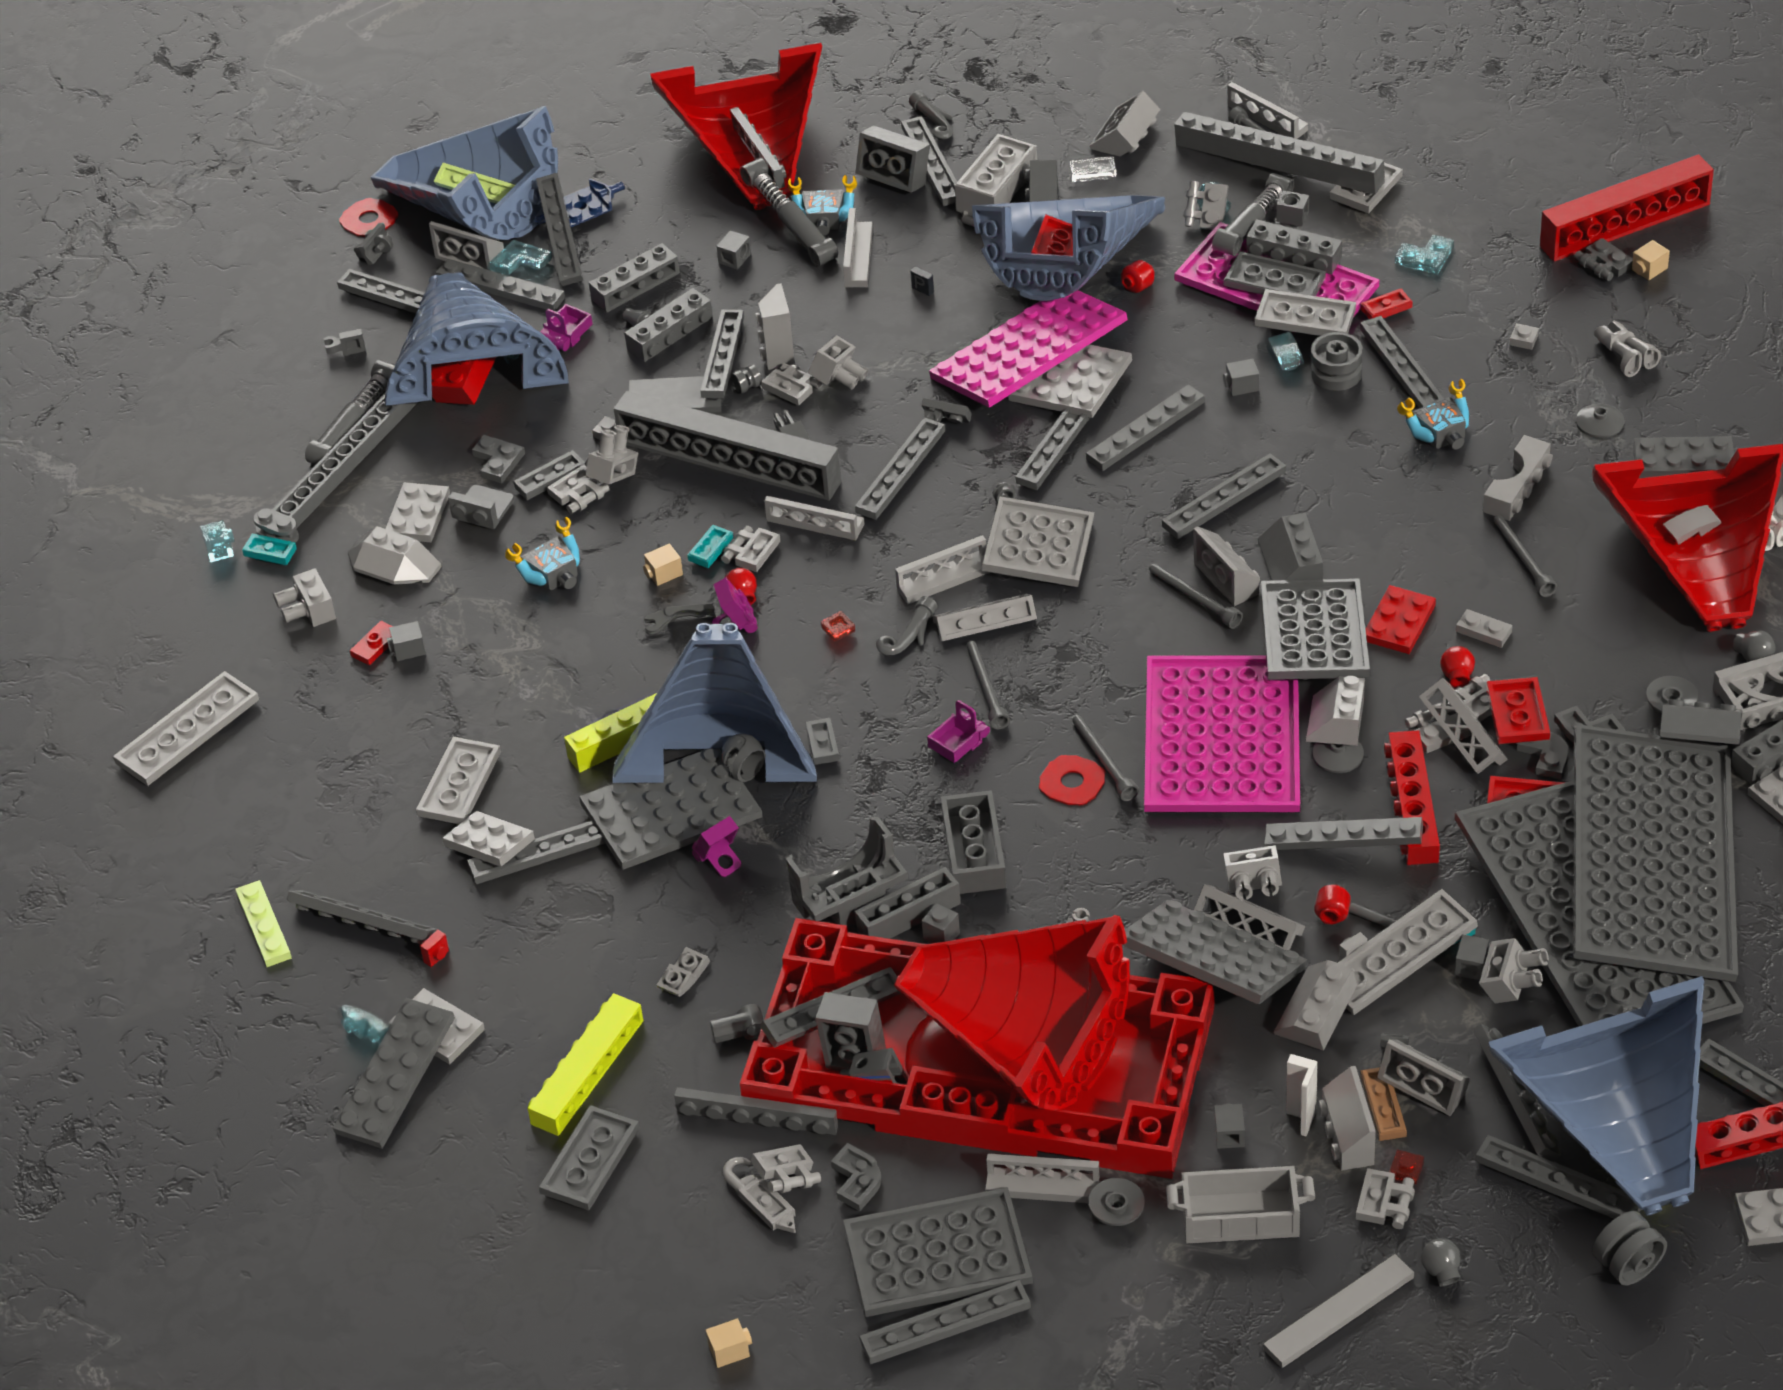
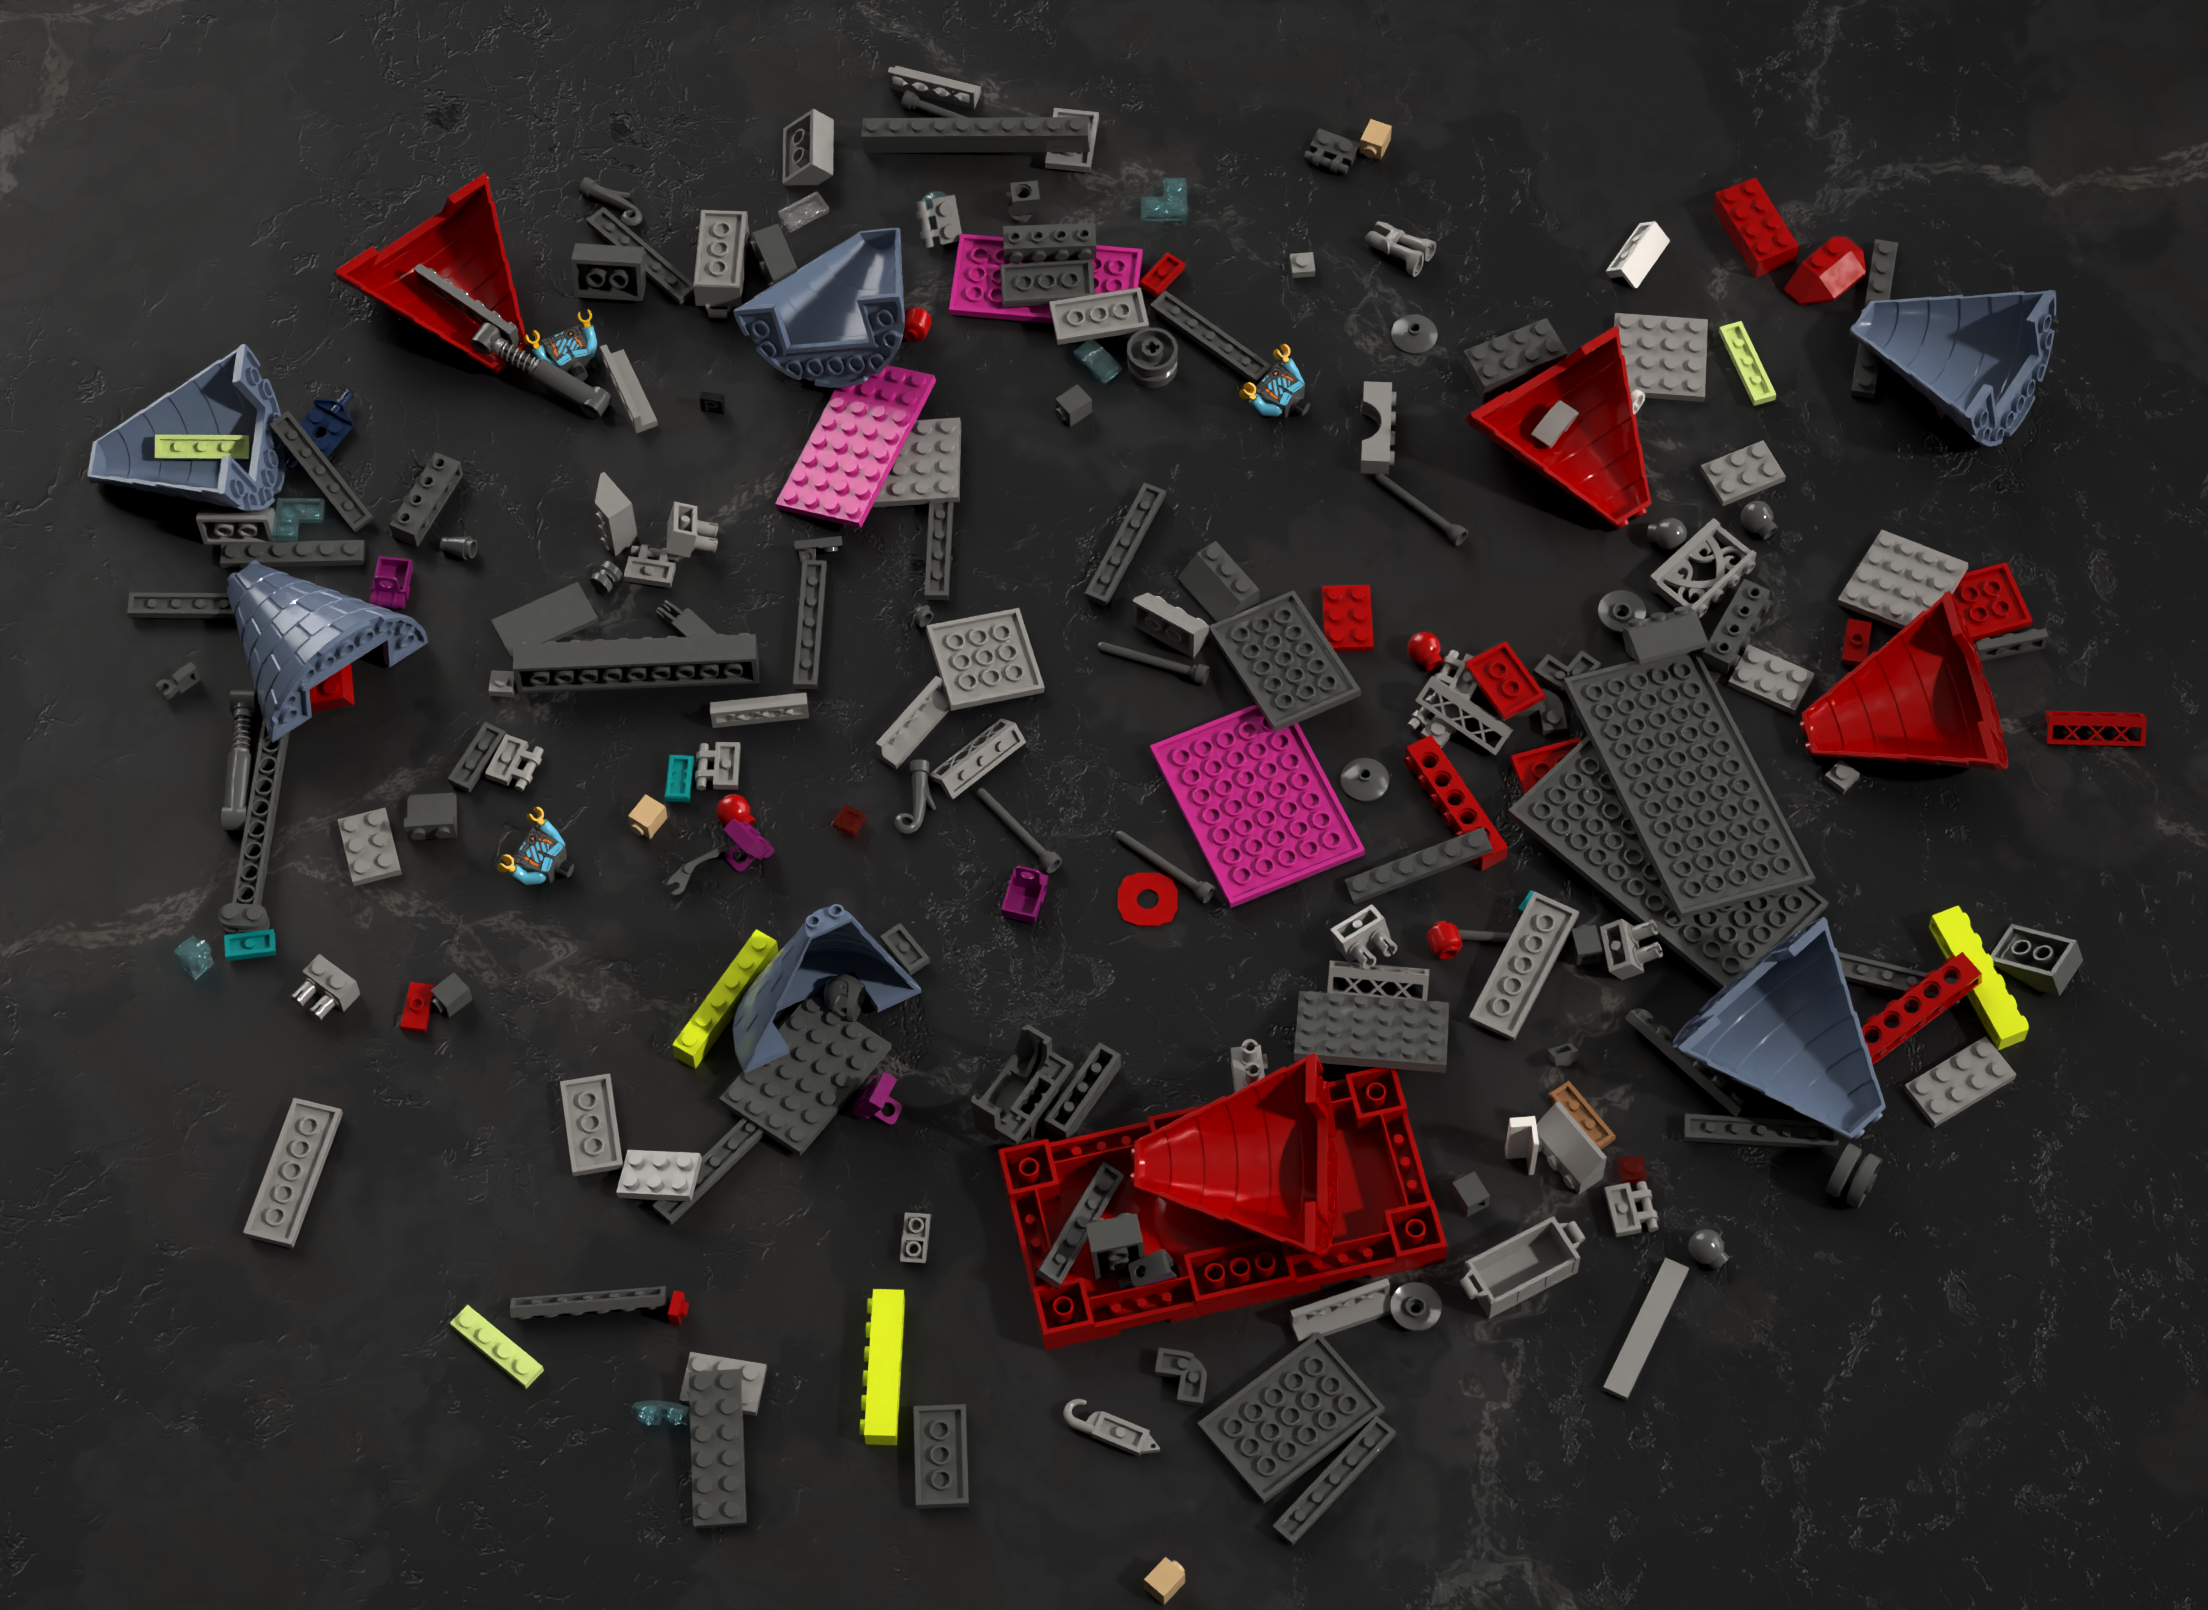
camera: 30 degrees left, 15 degrees up
(350, 217) = (113, 535): piece -> none
(374, 245) = (139, 552): dark grey hips -> none
(393, 557) = (377, 909): light grey wedge -> none
(501, 457) = (415, 750): dark grey plate -> none
(613, 458) = (535, 721): light grey brick -> none
(668, 324) = (493, 542): dark grey brick -> none
(722, 354) = (568, 558): plate -> none
(733, 249) = (506, 431): dark grey brick -> none
(744, 1023) = (1002, 1267): dark grey piece -> none
(756, 1111) = (1052, 1352): dark grey plate -> none
(784, 1162) = (1114, 1391): light grey plate -> none
(940, 925) = (1120, 1100): dark grey brick -> none
(973, 841) = (1103, 1002): dark grey brick -> none
(1054, 237) = (827, 315): red plate -> none
(1145, 427) = (1011, 493): dark grey plate -> none
(1231, 238) = (990, 218): dark grey piece -> none
(1317, 1004) = (1482, 1046): light grey slope -> none
(1337, 712) = (1349, 742): light grey slope -> none
(1351, 944) = (1481, 977): light grey plate -> none
(1422, 1077) = (1608, 1081): light grey slope -> none
(1484, 628) = (1425, 600): light grey plate -> none
(1626, 207) = (1328, 89): red brick -> none

